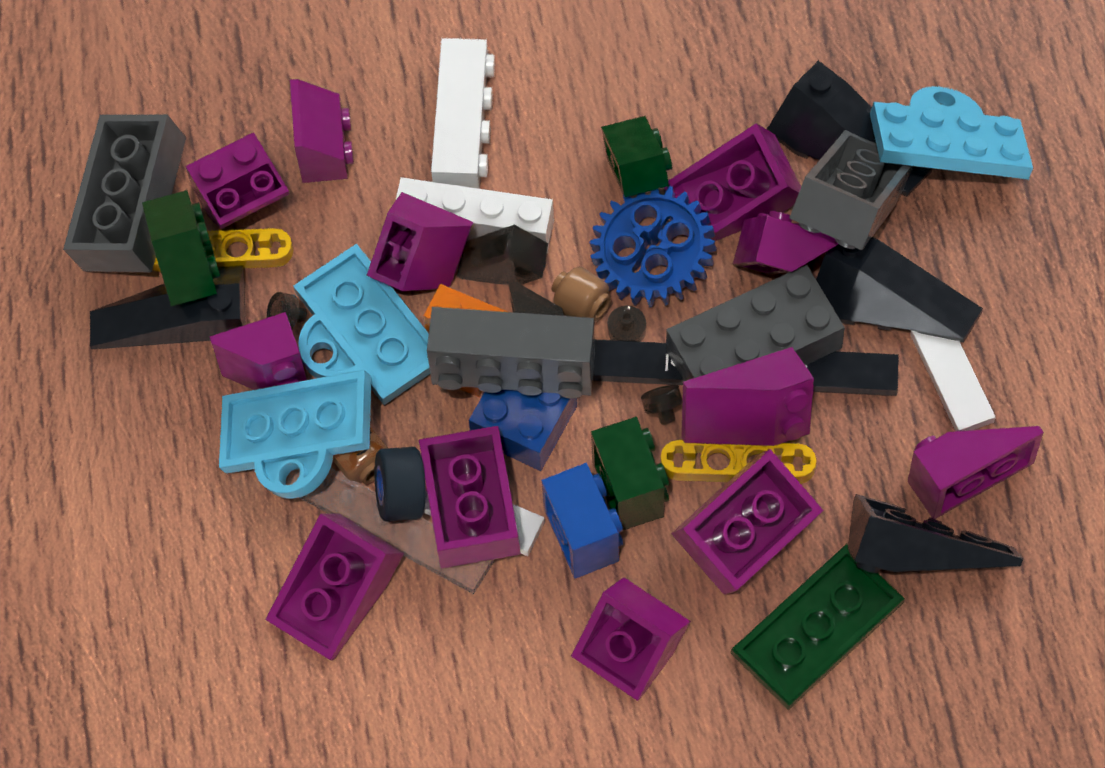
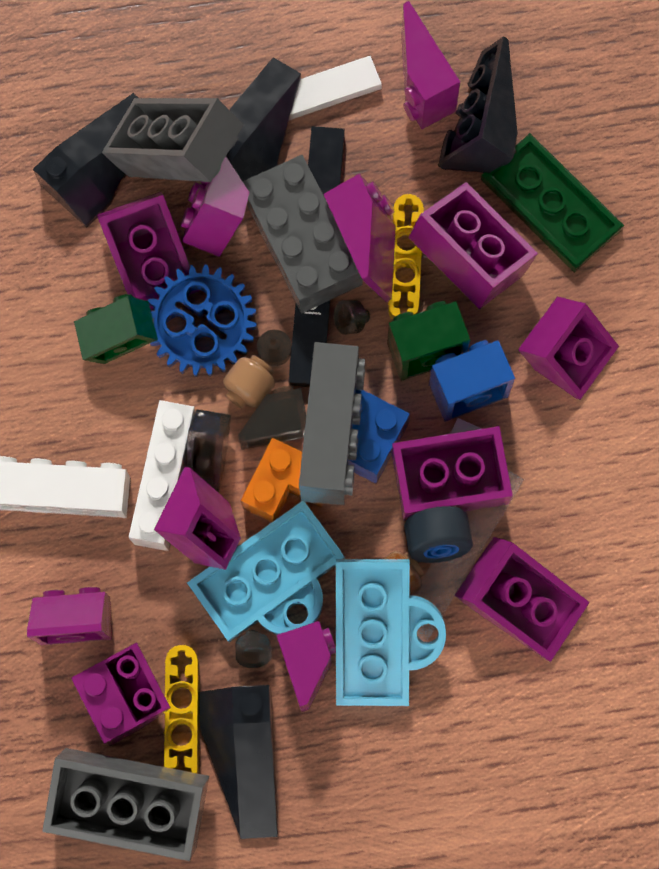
camera: 90 degrees left, 10 degrees up
(181, 247) = (201, 738): dark green brick -> none
(950, 135) = (111, 69): medium azure plate -> none

